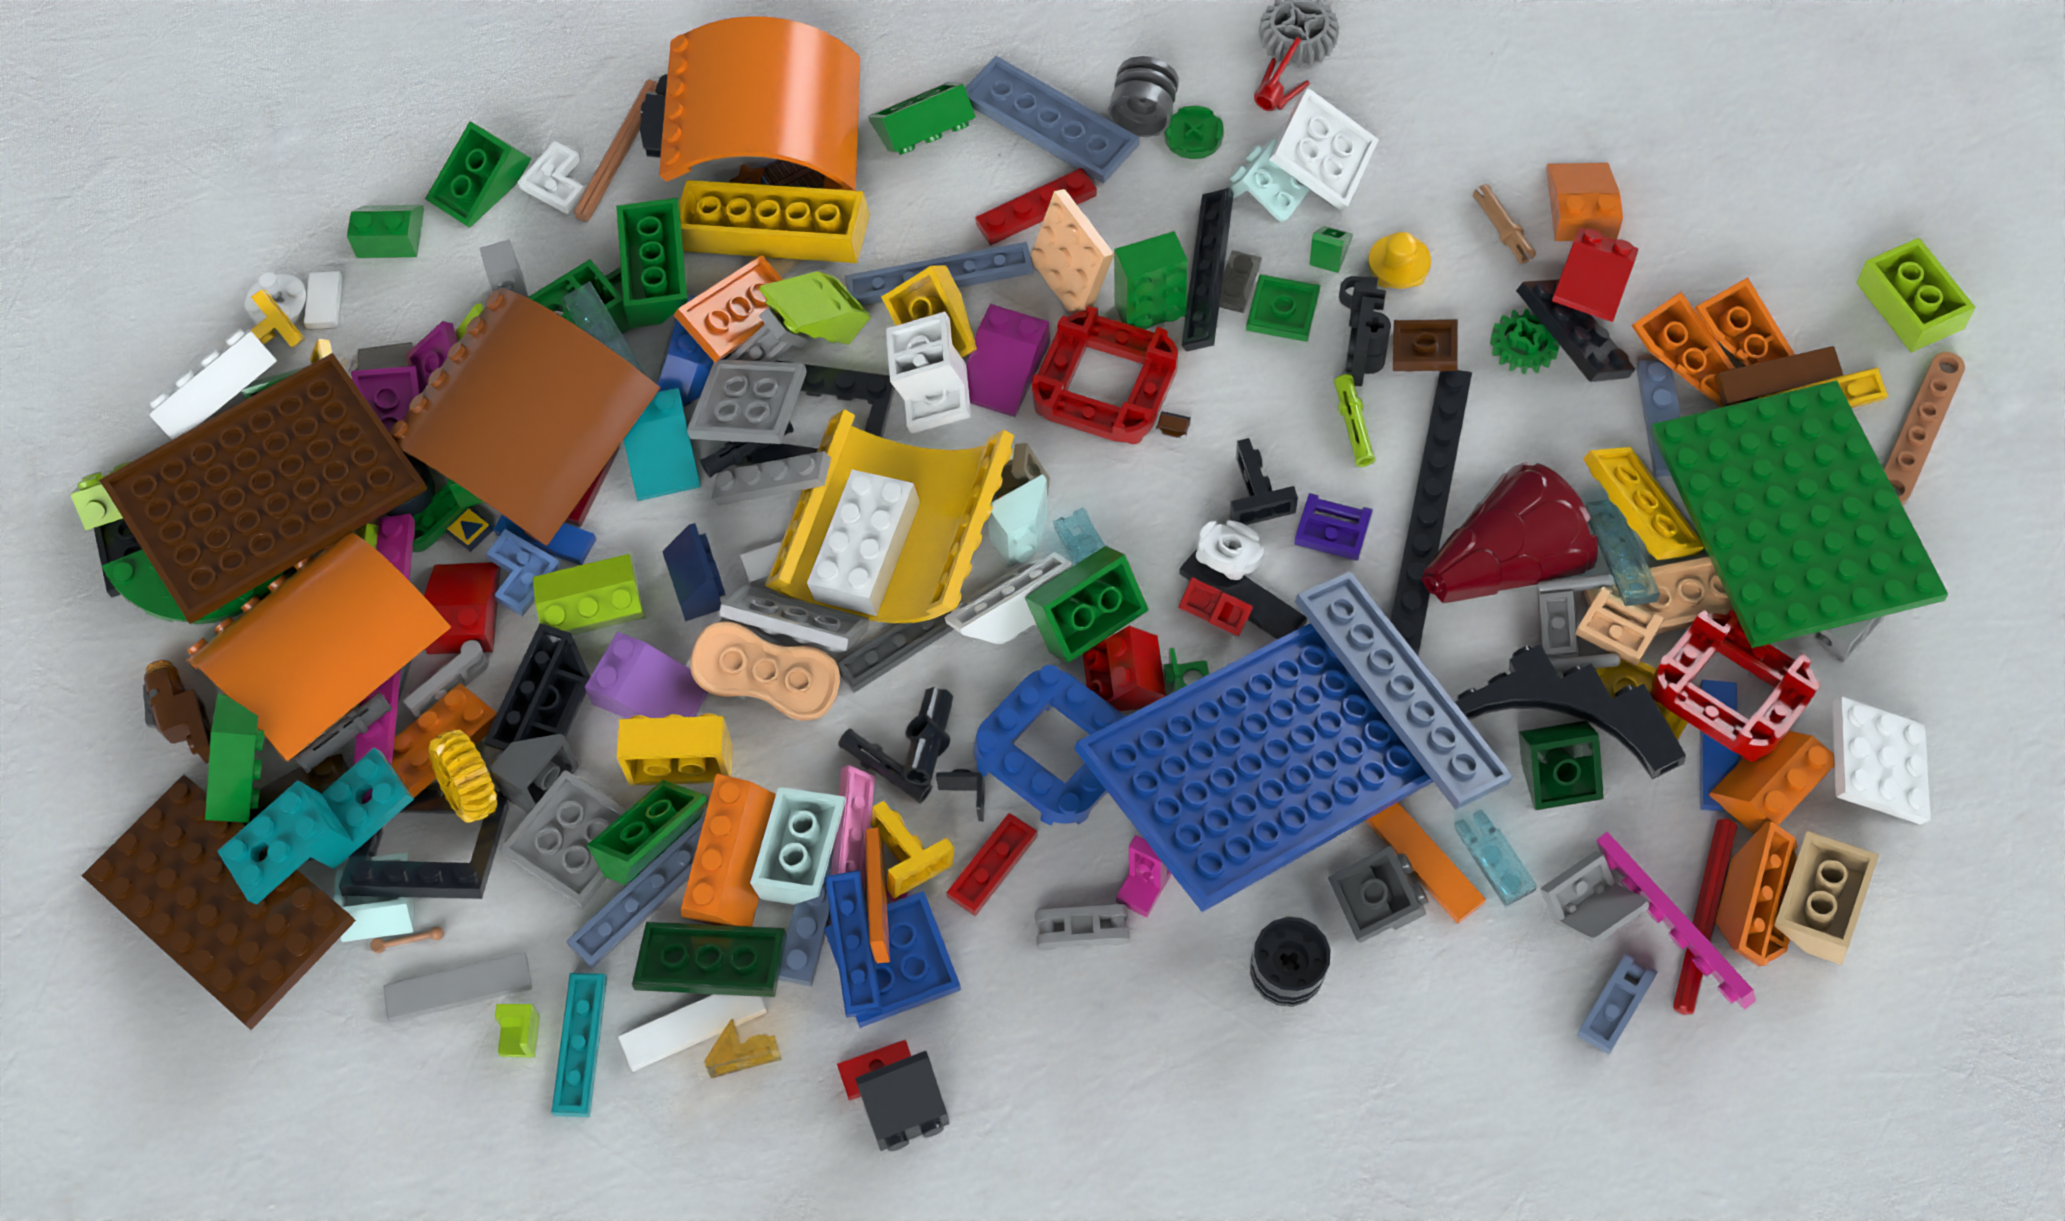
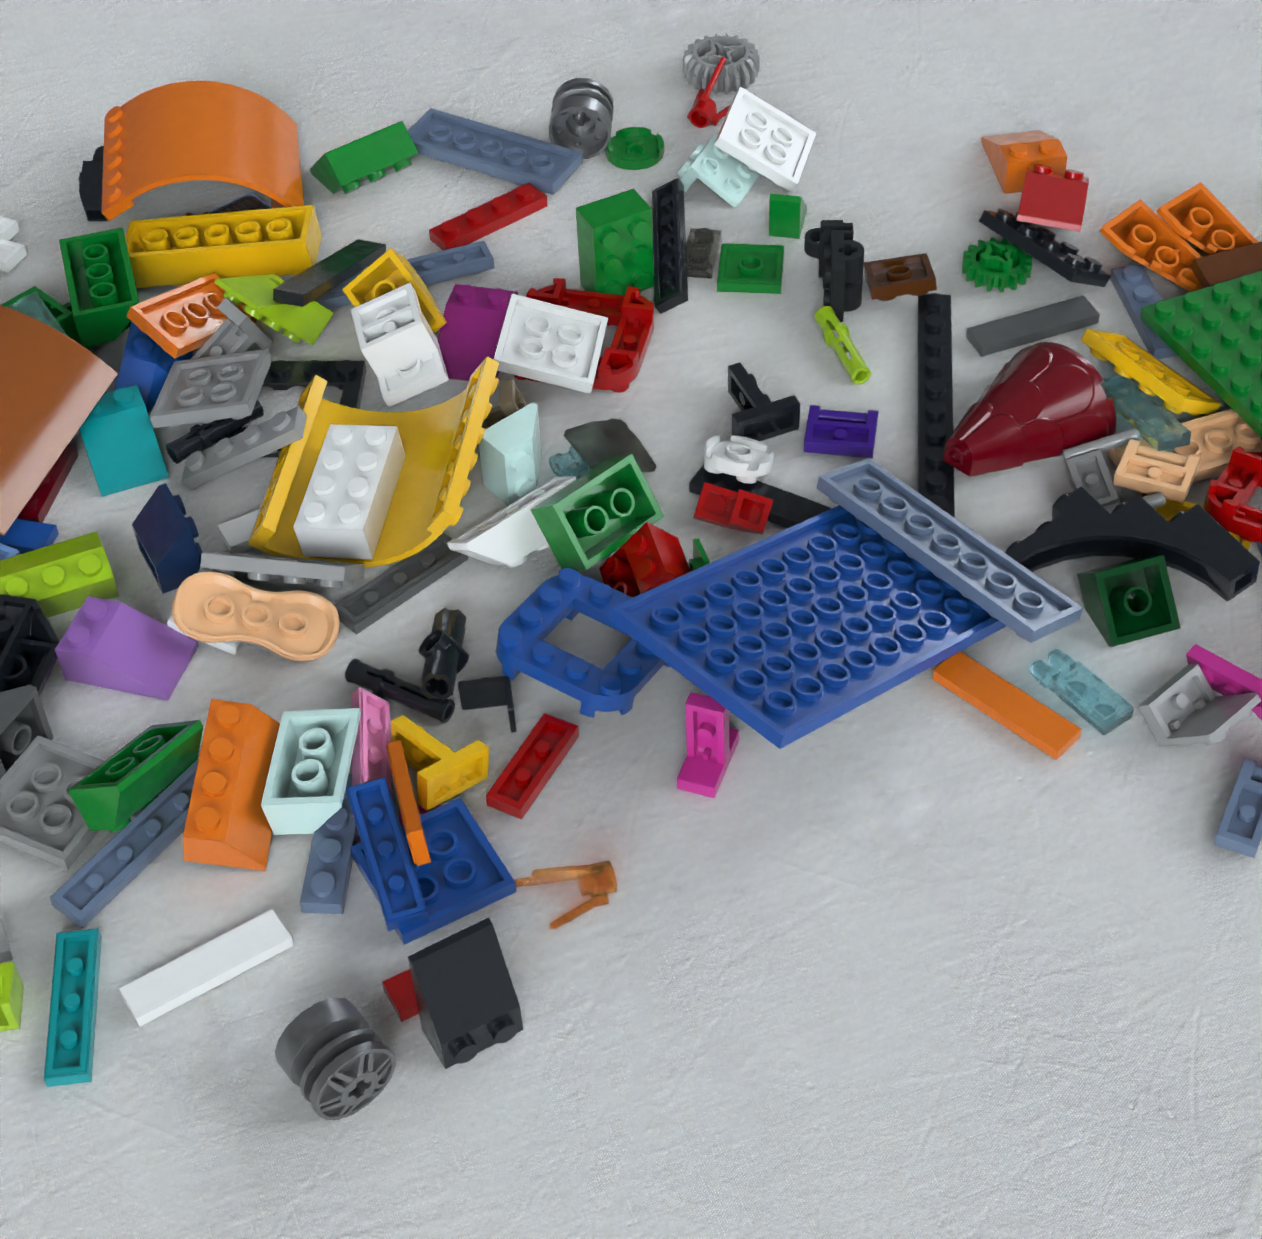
camera: 10 degrees left, 15 degrees down
(613, 157) = (50, 228): nougat axle -> none
(674, 749) = (156, 691): yellow brick -> none
(709, 959) = (220, 895): dark green piece -> none
(731, 1056) = (261, 989): clear yellow slope -> none
(789, 1139) = (335, 1058): none -> flat silver wheel
(872, 273) = (328, 273): none -> black tile
(1027, 989) = (592, 879): none -> clear orange plant
(1071, 254) = (531, 233): light nougat plate -> none
(1071, 393) = (550, 343): none -> white plate
(1082, 926) = (643, 811): light grey plate -> none
(1111, 520) = (608, 439): none -> clear smoke slope
(1173, 424) = (659, 370): reddish brown piece -> none
(1285, 942) = (883, 806): black wheel -> none
(1379, 893) = (965, 736): dark grey plate -> none
(1399, 261) = (868, 217): yellow plate -> none
(1510, 233) = (960, 187): medium nougat pin -> none
(1545, 420) = (1032, 325): none -> dark grey tile

